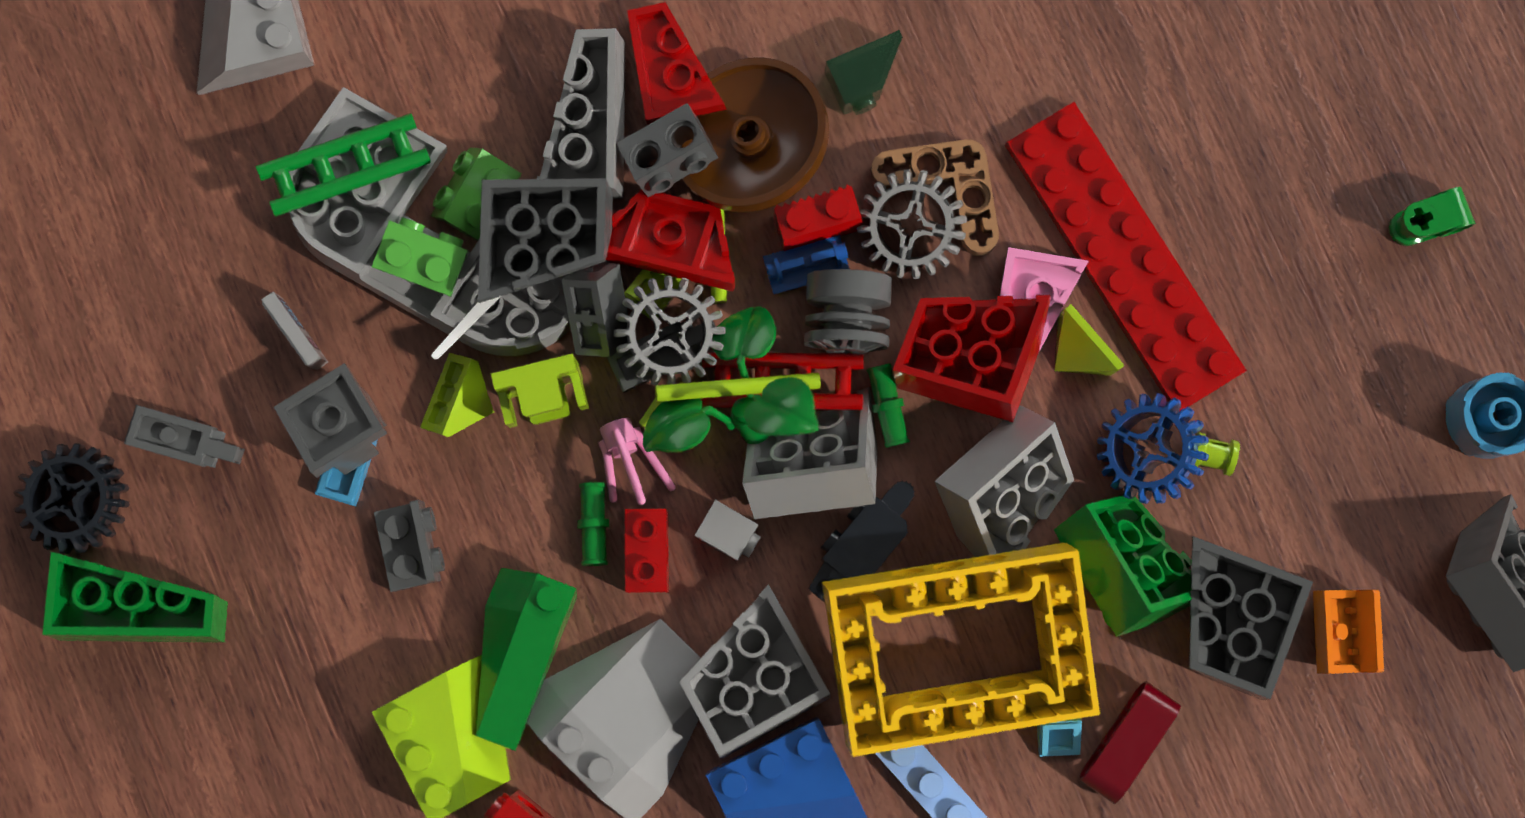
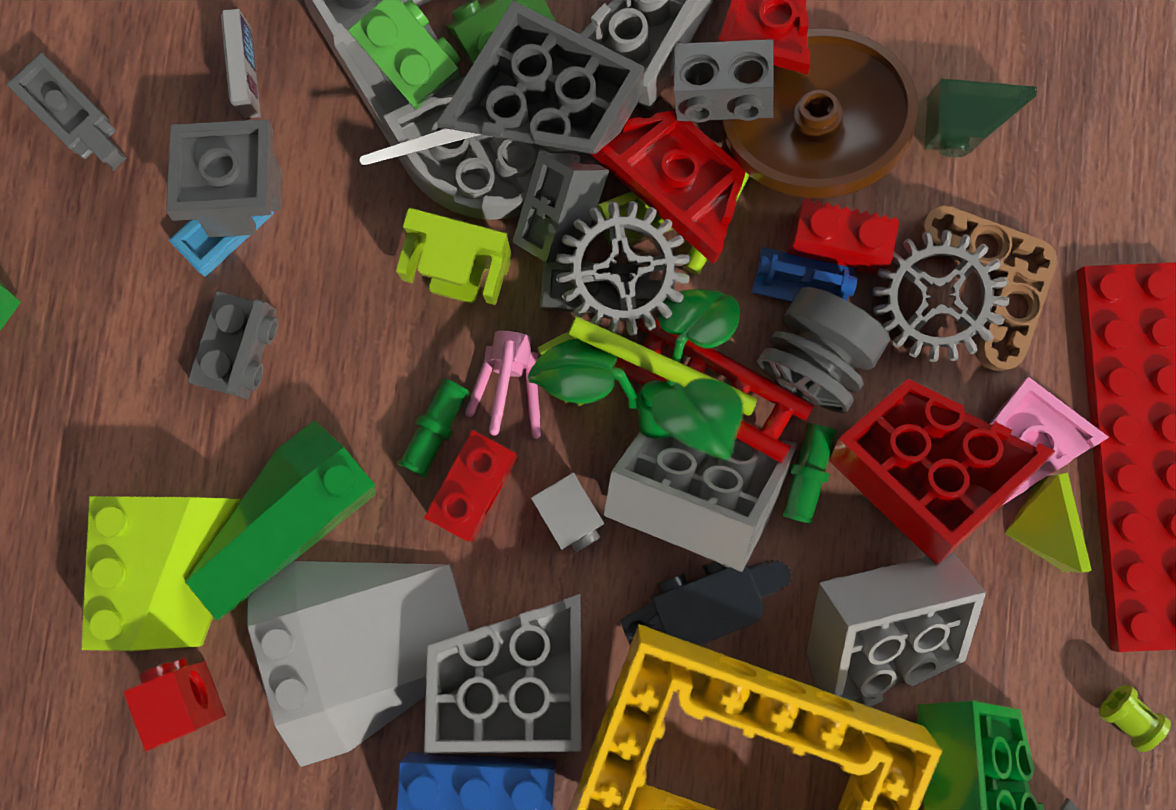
camera: 30 degrees right, 0 degrees up
(458, 397) = (369, 223): lime slope -> none
(1144, 464) = (1095, 663): blue gear -> none

